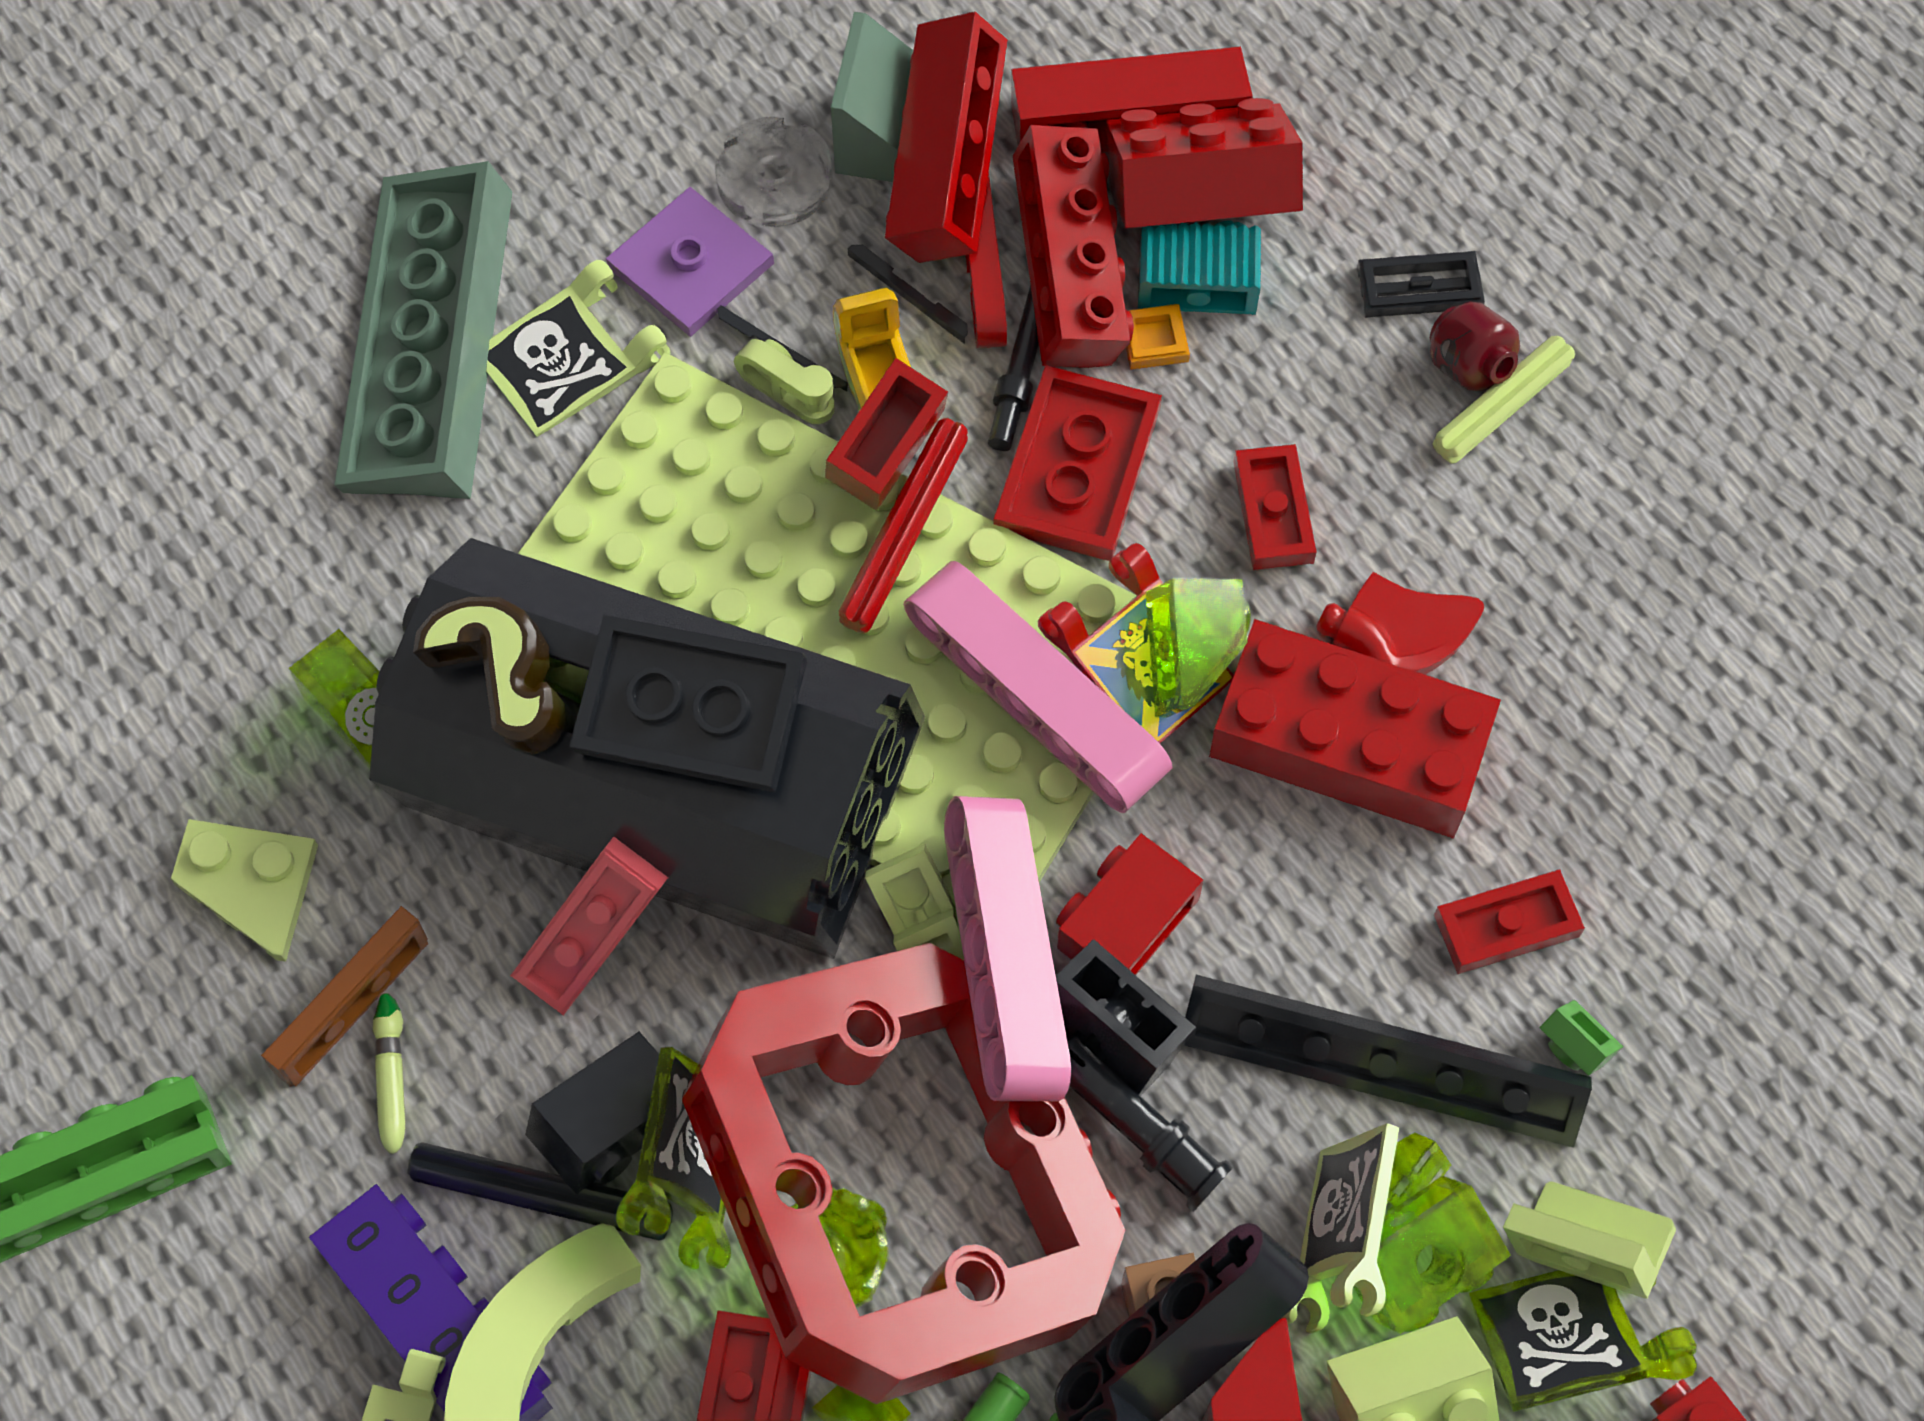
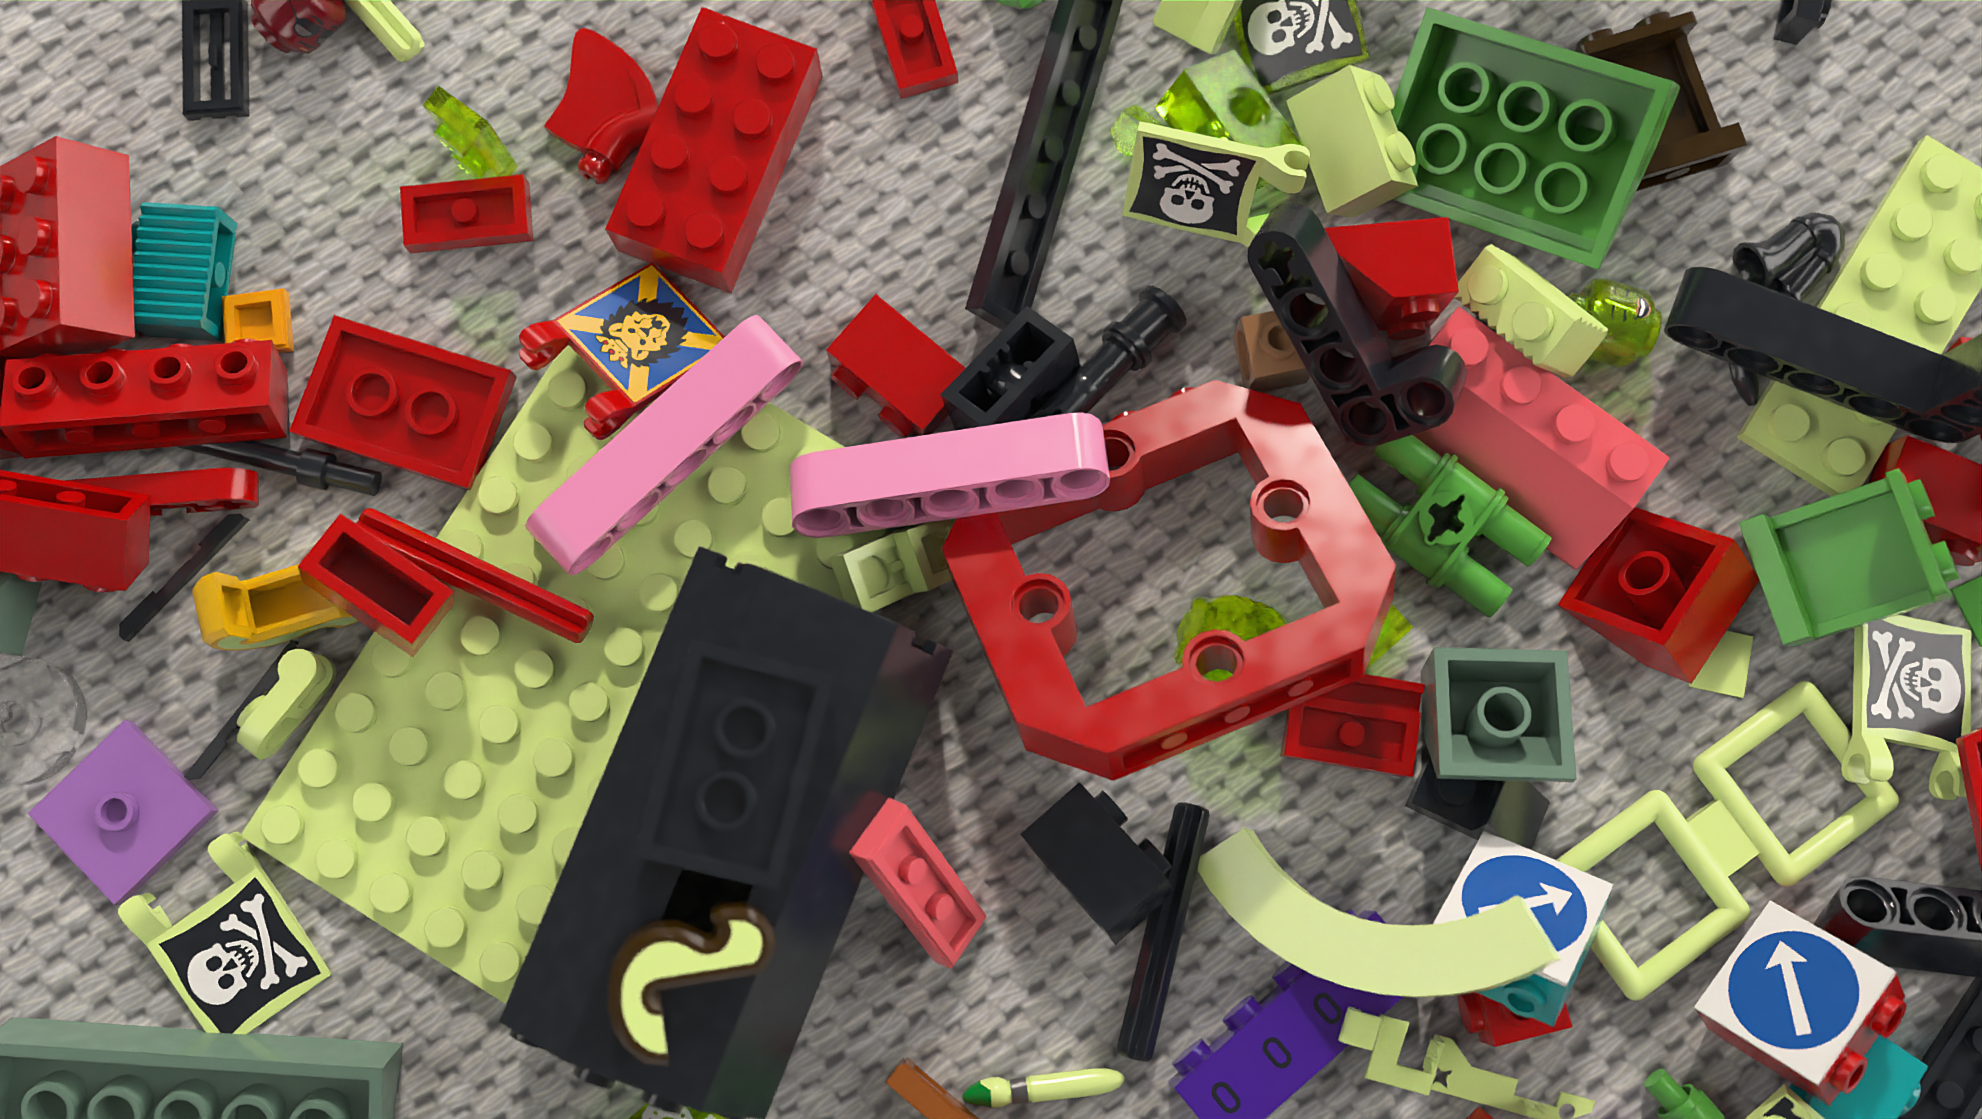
camera: 90 degrees left, 15 degrees up
(675, 1170) = (1162, 792): clear neon green flag -> none
(1193, 637) = (627, 289): clear neon green slope -> none
(1344, 496) = (468, 136): none -> clear neon green plate

